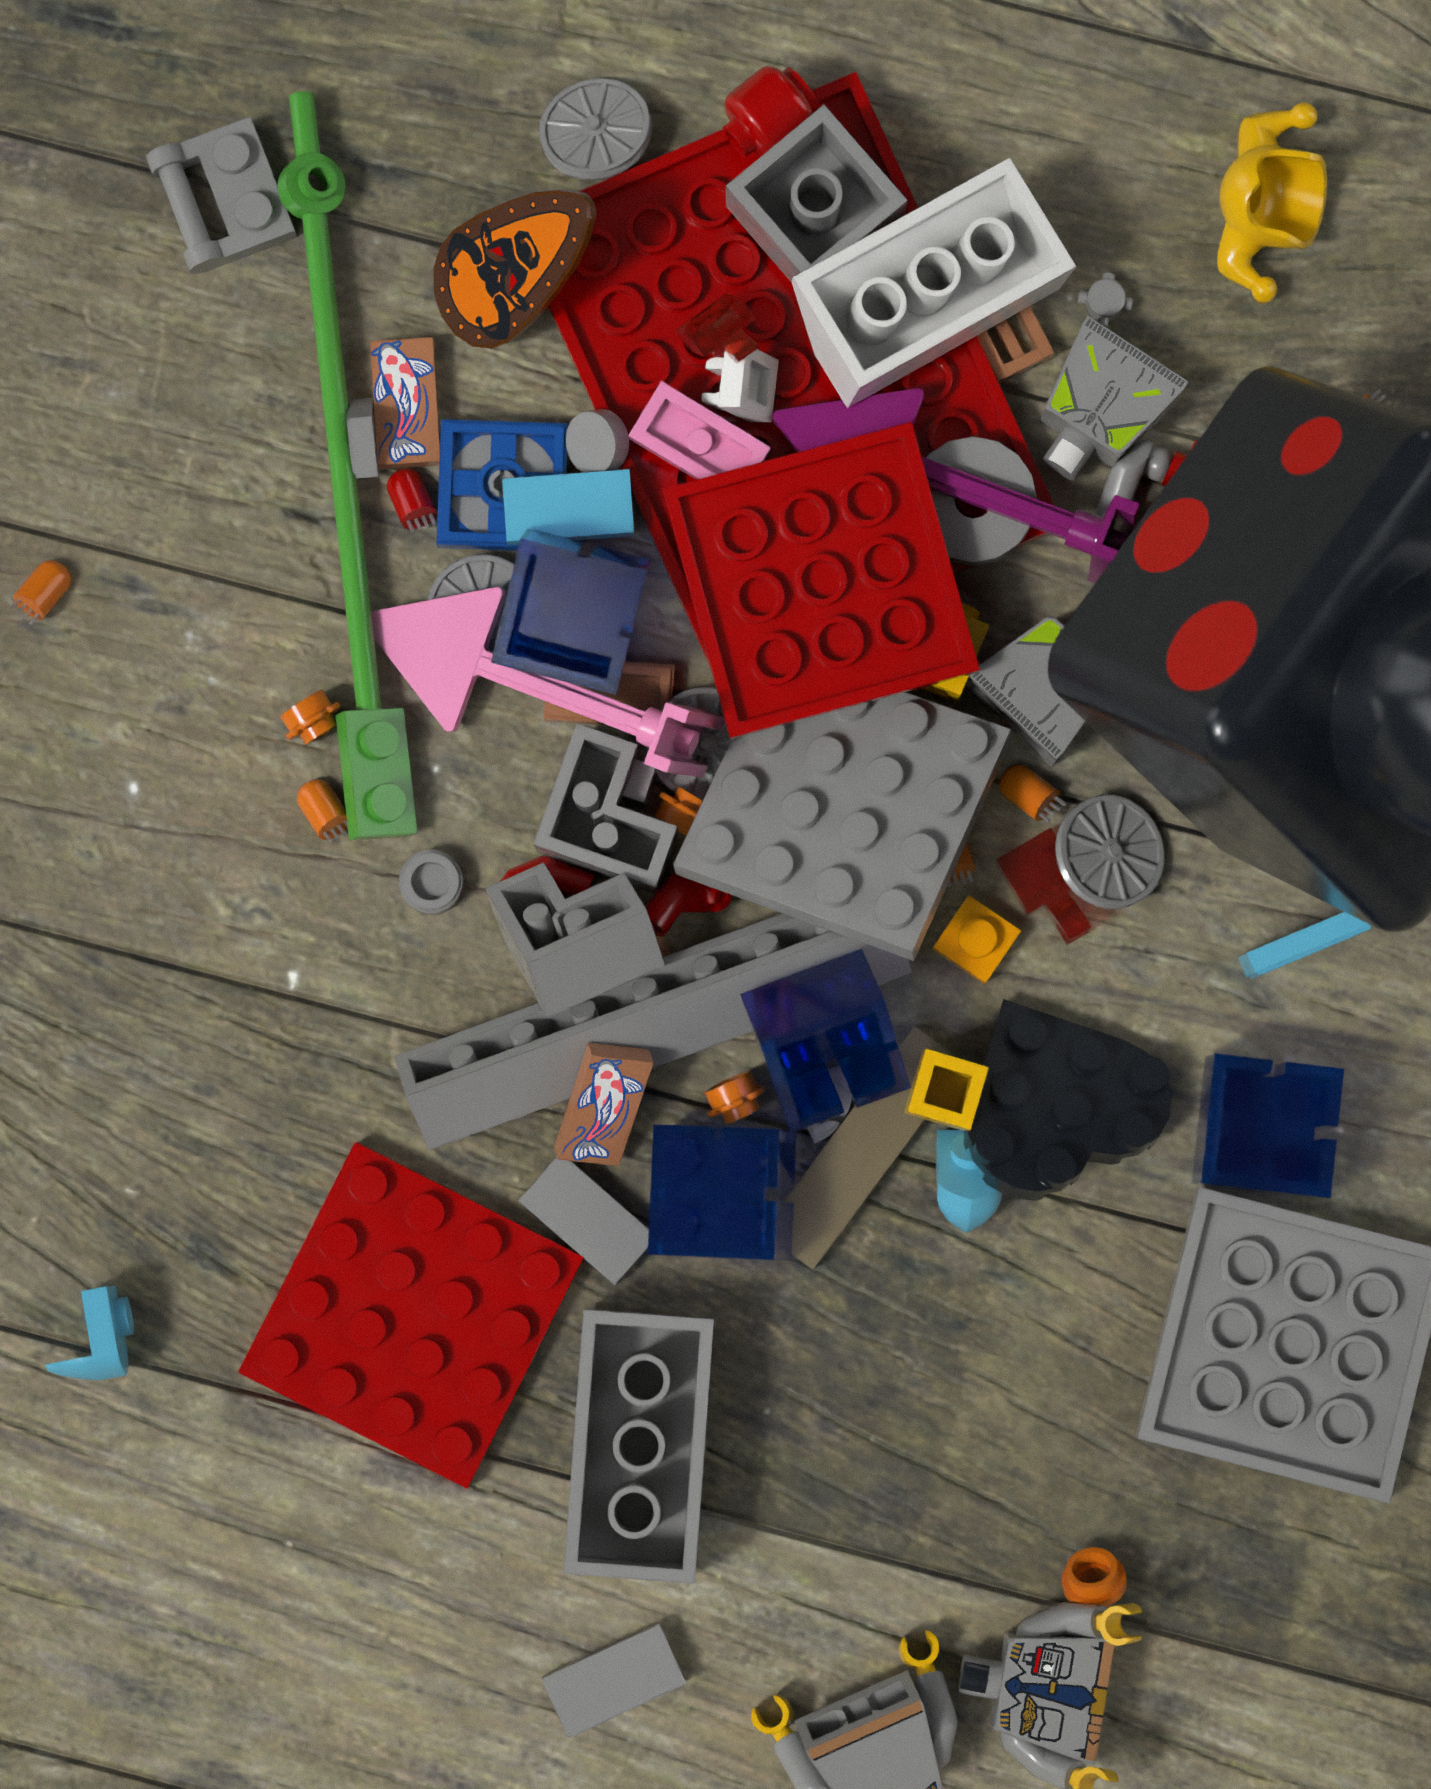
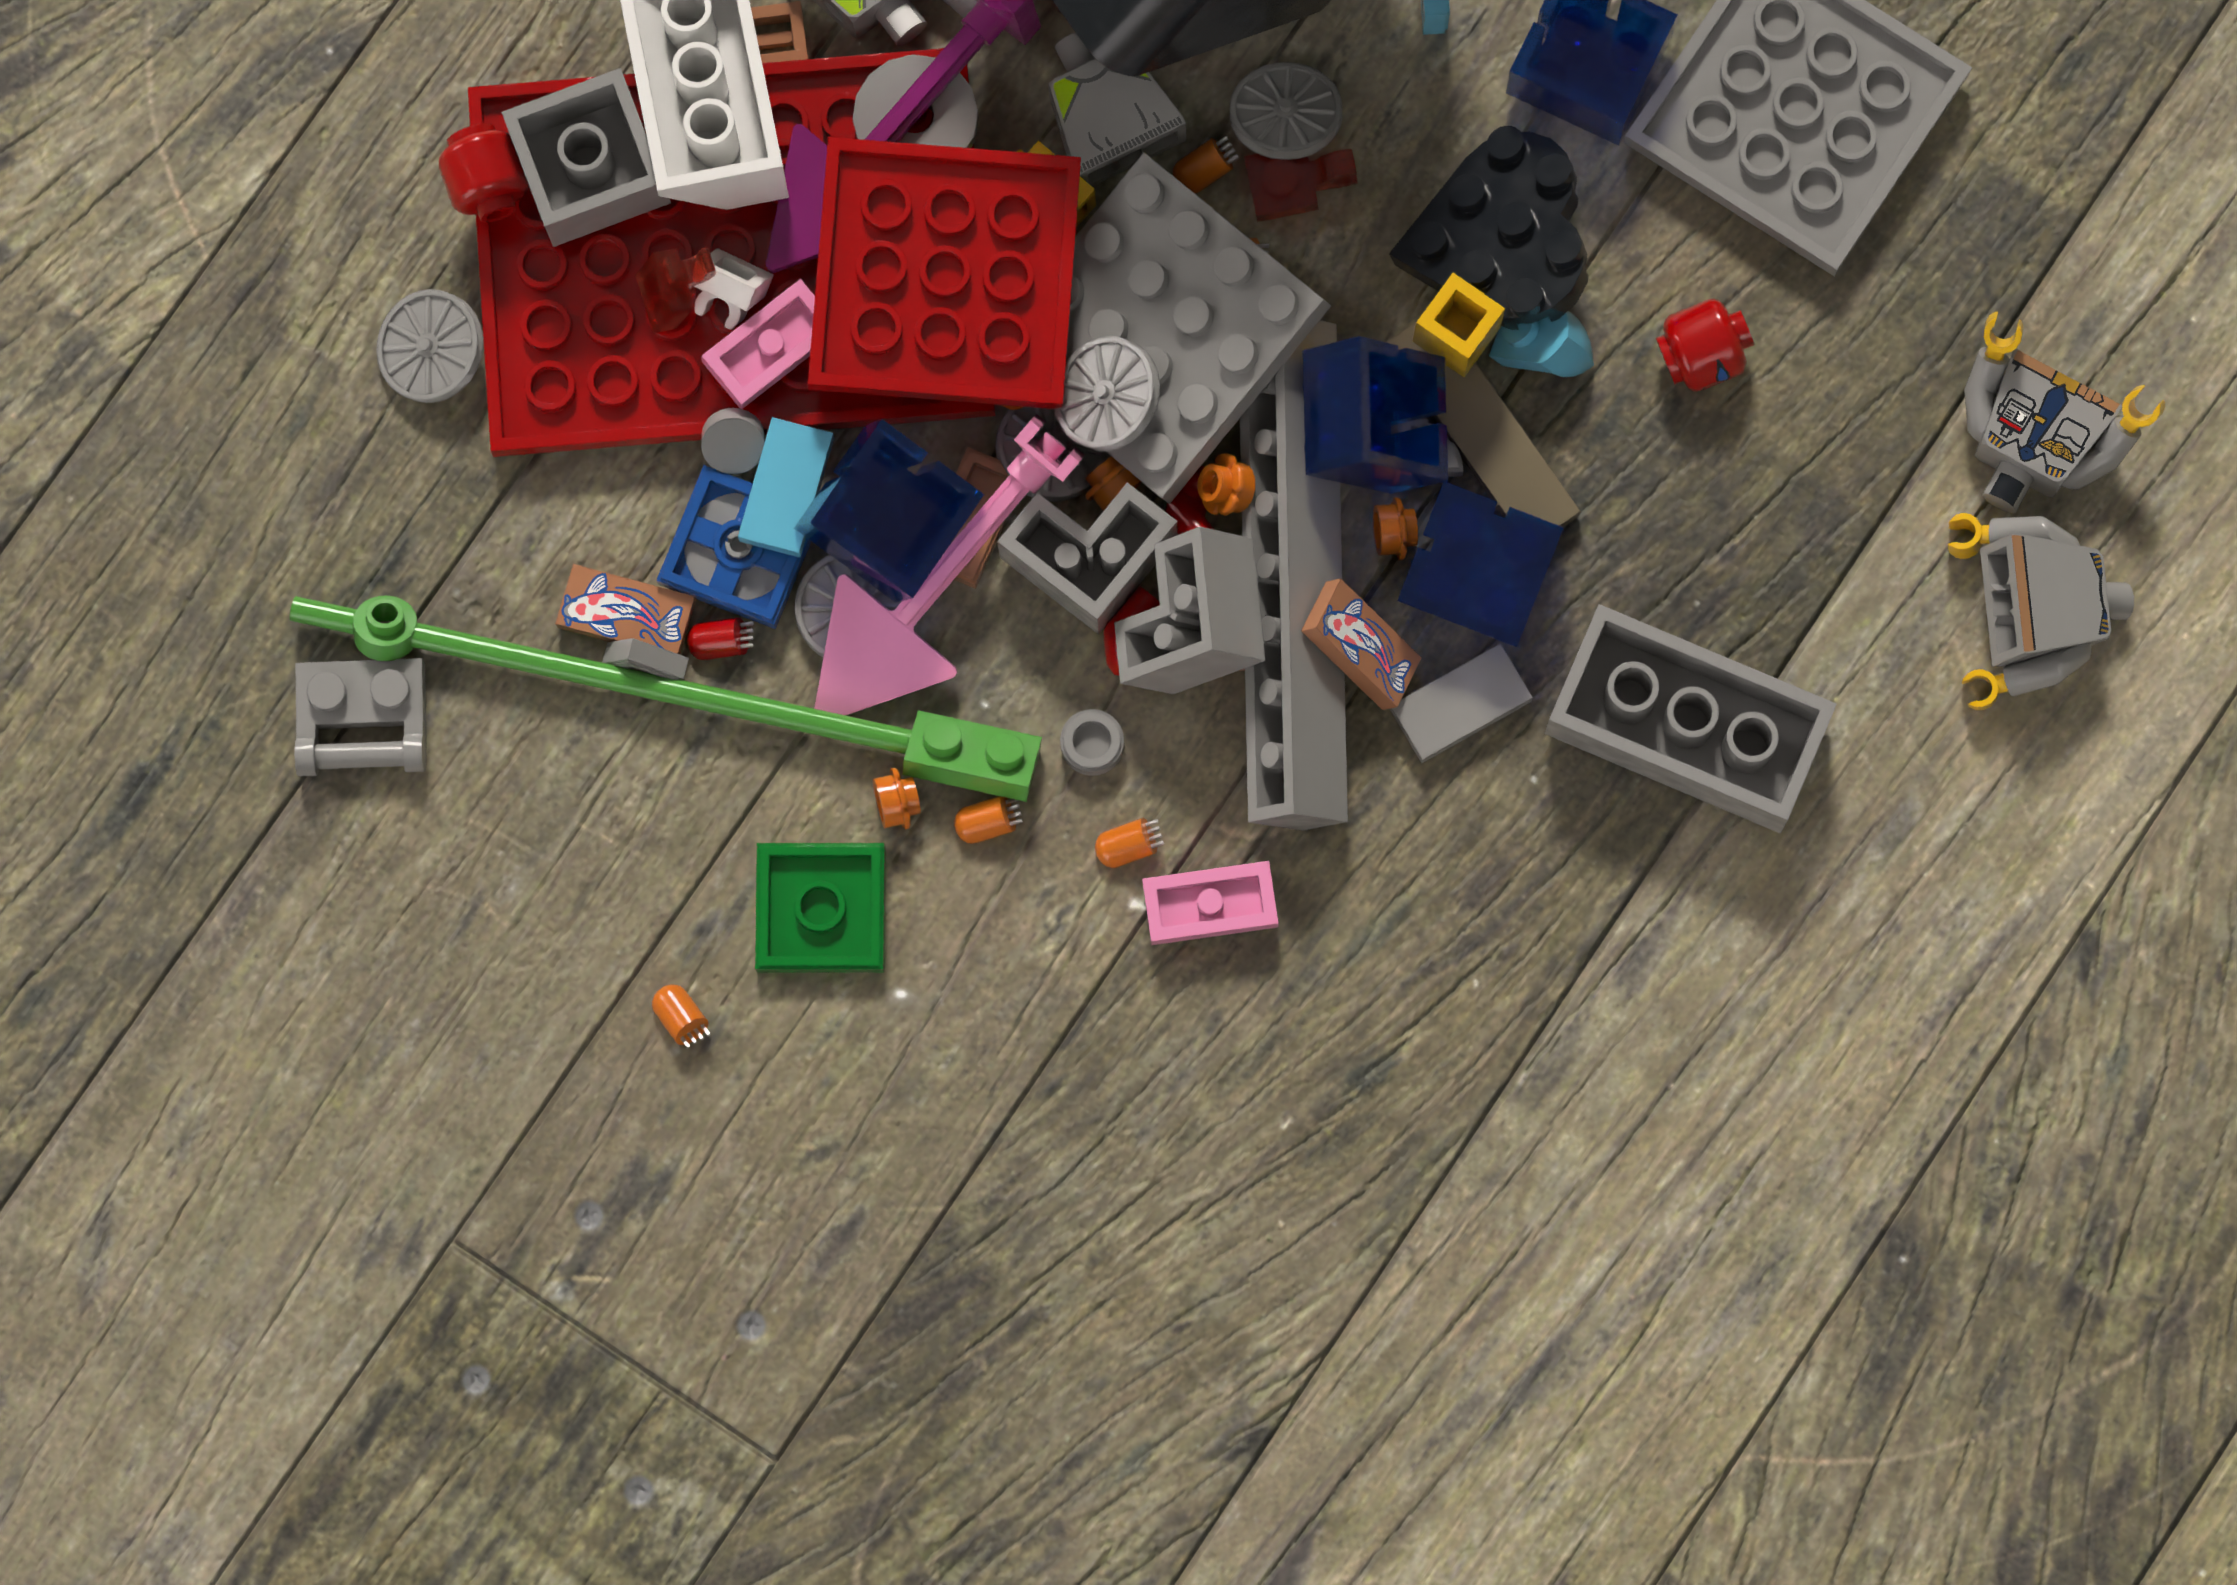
camera: 65 degrees left, 5 degrees down
(107, 1325) = (1406, 1178): medium azure plate -> none
(187, 684) = (820, 908): none -> green tile
(311, 1046) = (1210, 903): none -> bright pink plate
(346, 949) = (1127, 843): none -> orange piece
(411, 1315) = (1494, 897): red plate -> none
(510, 264) = (537, 459): shield -> none
(614, 1680) = (1900, 824): light grey tile -> none
(639, 784) = (1072, 509): light grey piece -> none
(712, 922) = (1226, 485): none -> orange plate
(755, 778) = (1108, 393): none -> light grey wheel
(976, 940) = (1324, 259): light orange plate -> none
(1017, 1334) = (1705, 345): none -> red head
(1095, 1566) = (1950, 354): orange plate -> none

